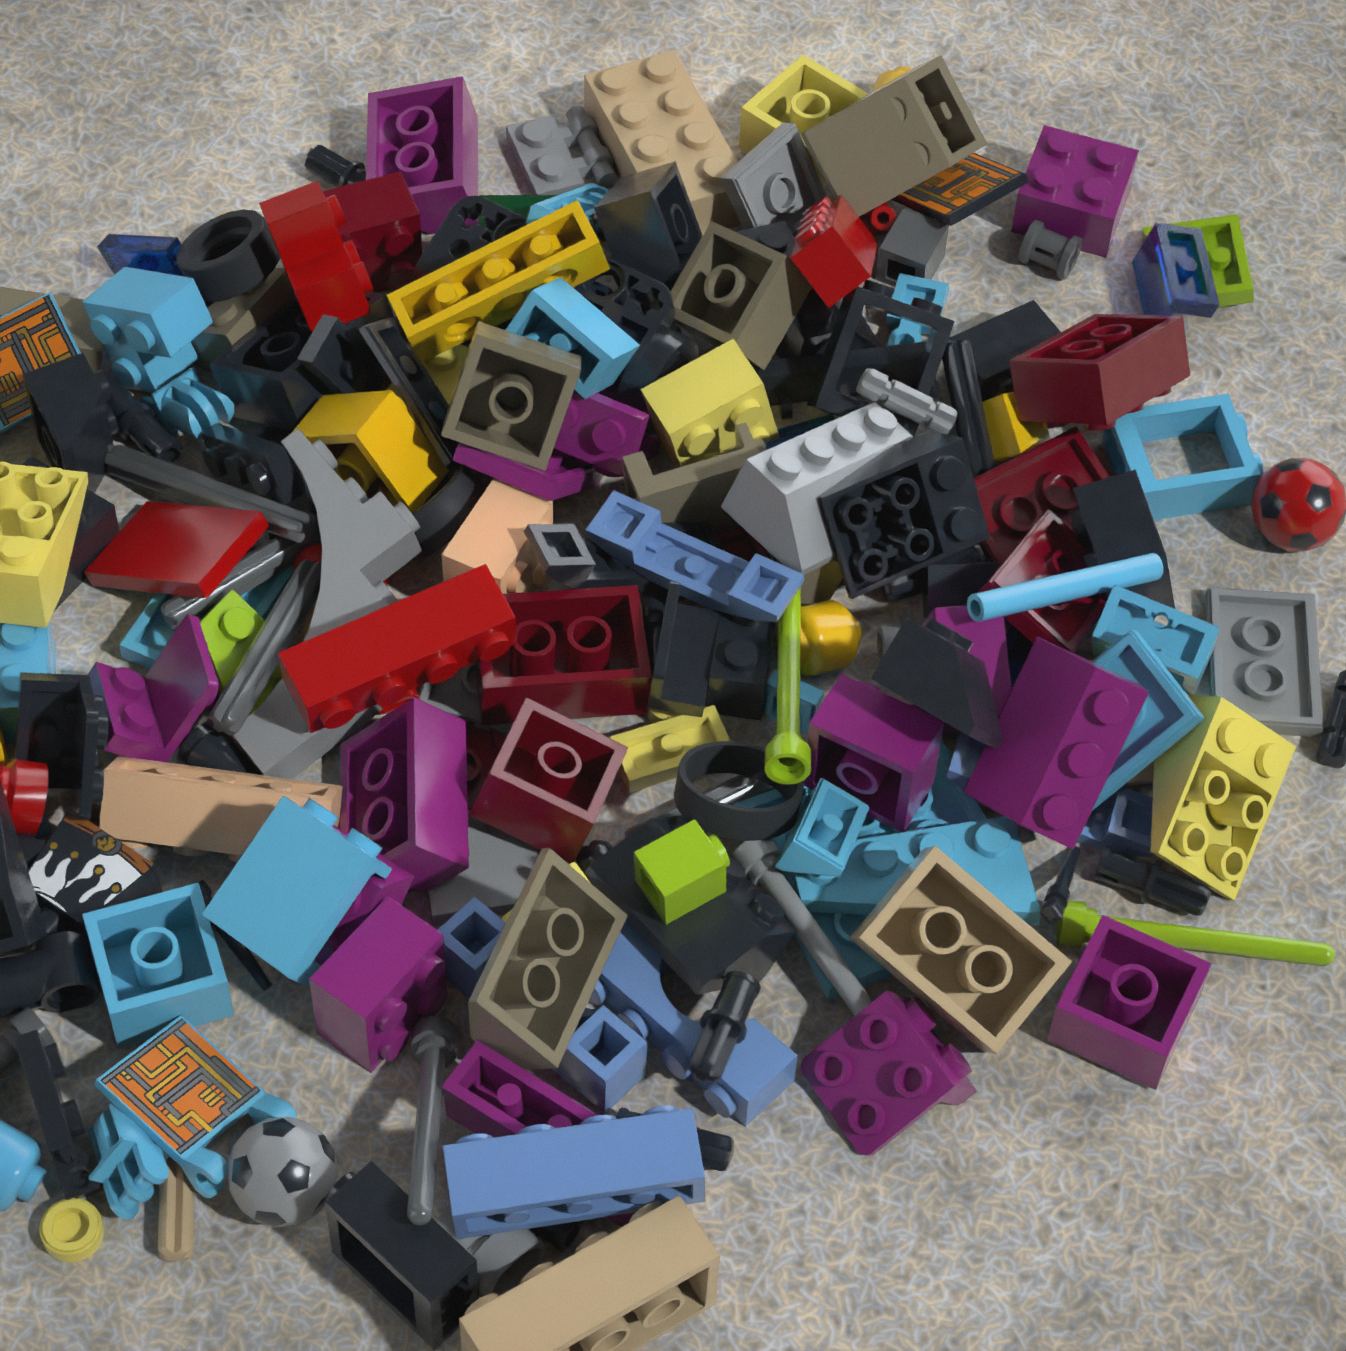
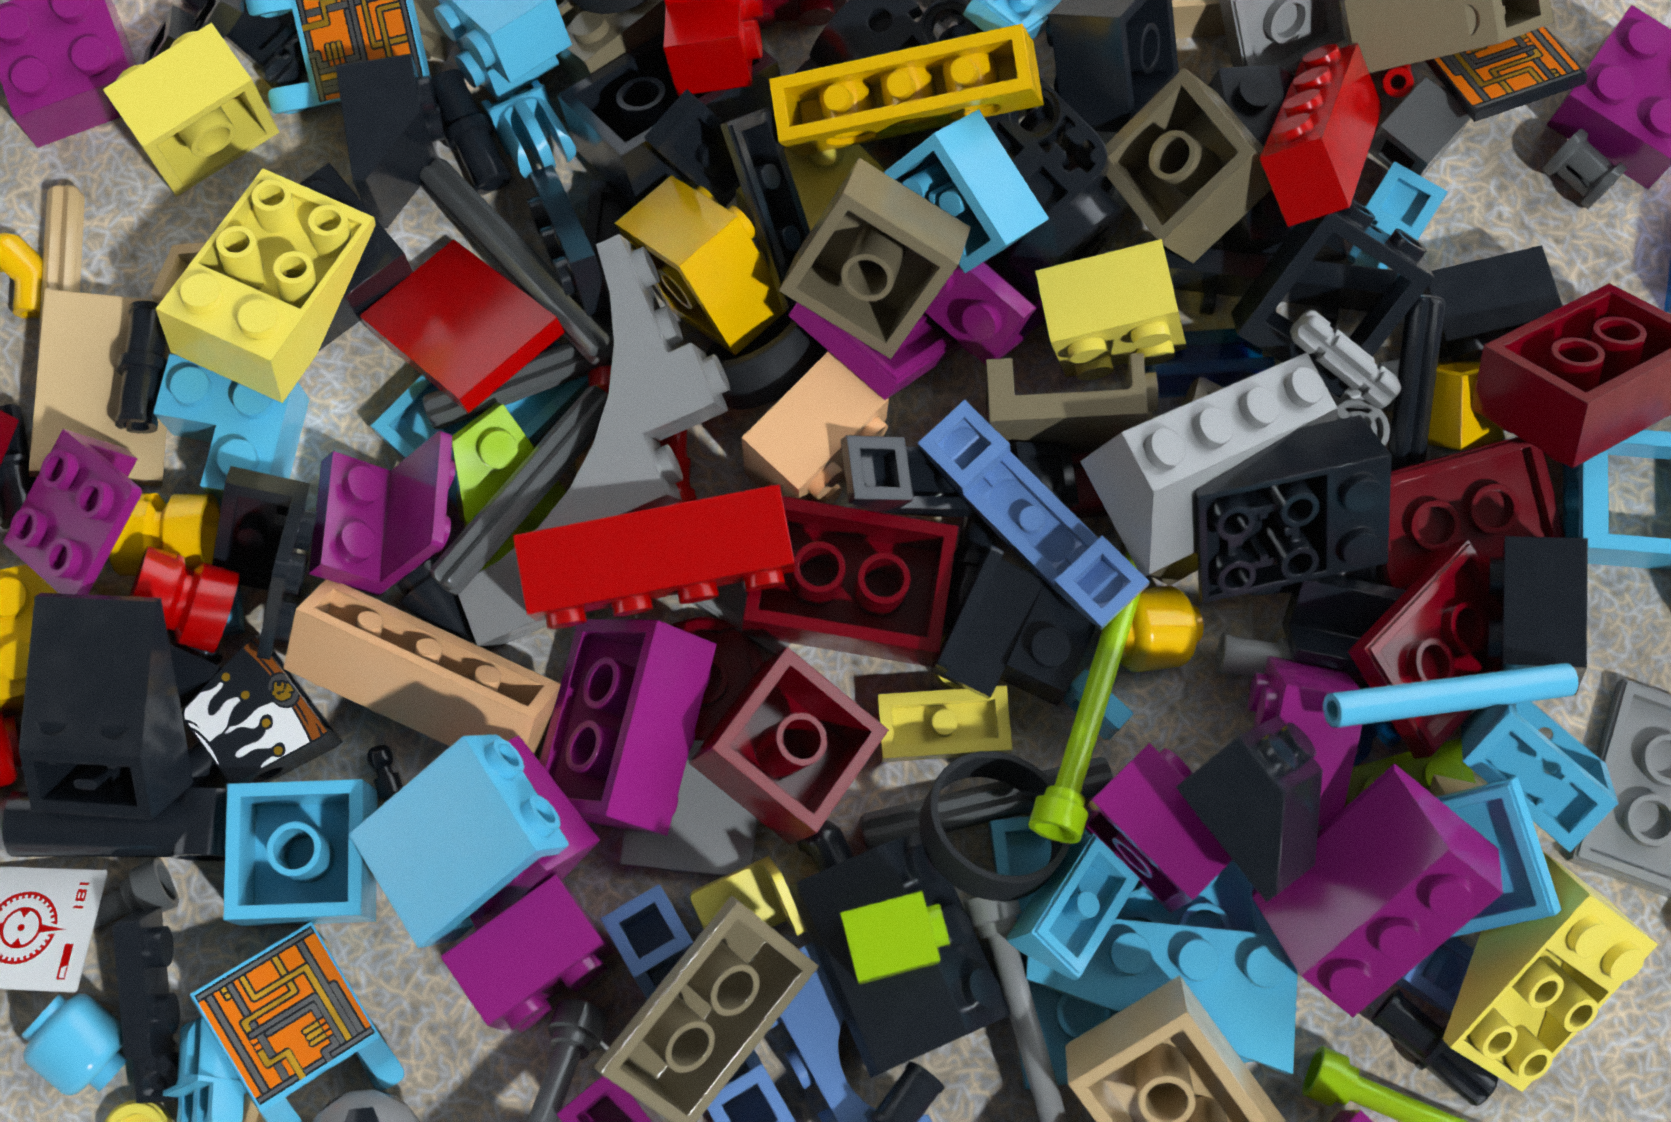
camera: 15 degrees right, 20 degrees up
(1058, 893) = (1319, 1053): black piece -> none

